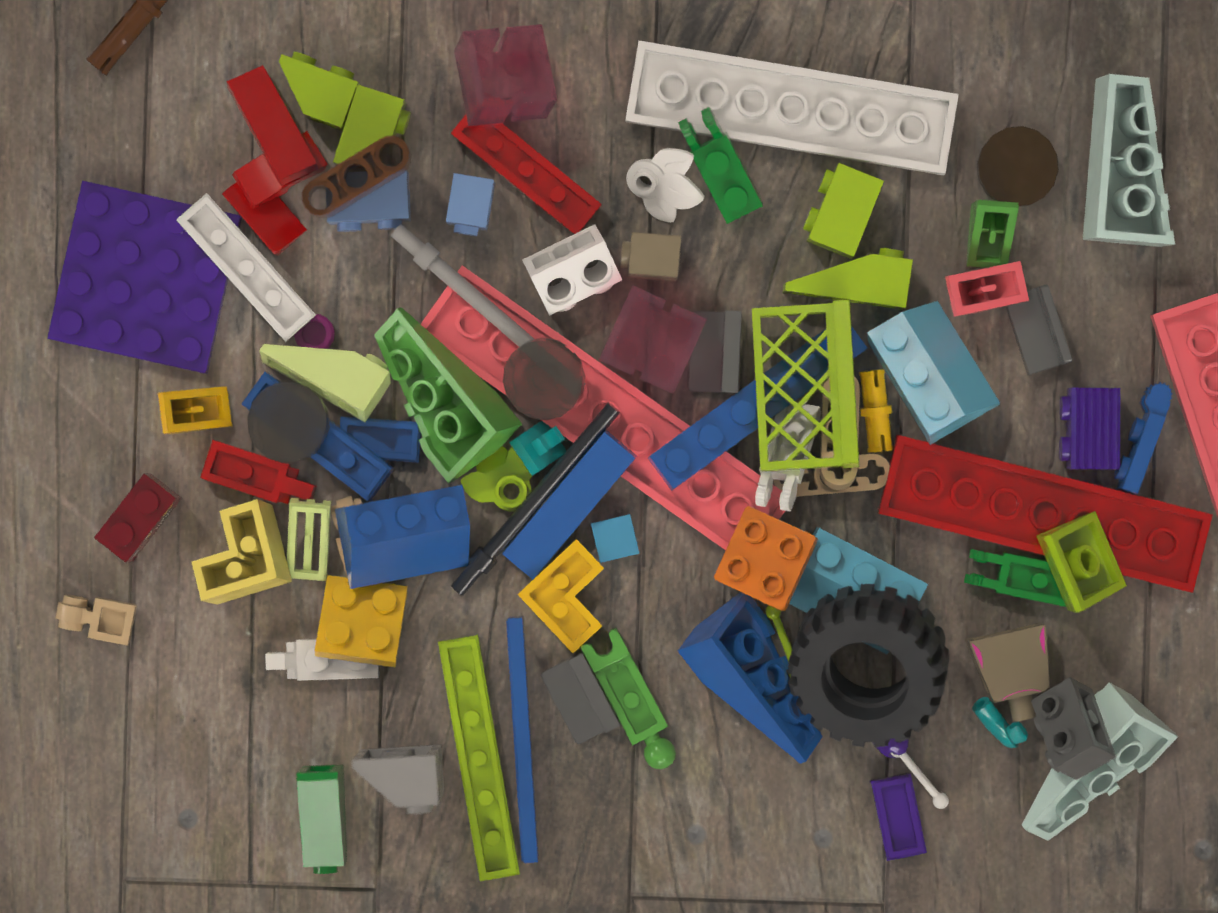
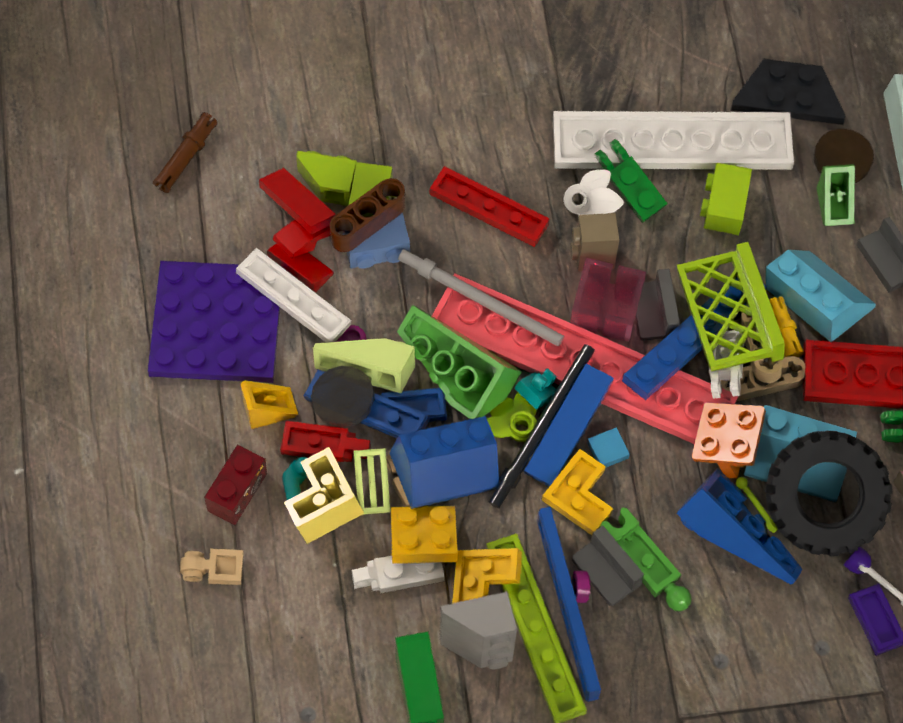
camera: 15 degrees left, 25 degrees down
(210, 516) = (293, 478): none -> teal arm
(418, 682) = (482, 568): none -> yellow plate
(470, 204) = (452, 232): medium blue brick -> none
(506, 81) = (471, 145): clear pink piece -> none
(542, 719) = (581, 586): none -> magenta tile
(543, 379) = (532, 334): clear smoke tile -> none
(568, 261) = (535, 257): white brick -> none
(868, 280) = (765, 236): lime slope -> none
(969, 54) = (790, 88): none -> black wing
(987, 289) = (845, 230): coral slope -> none

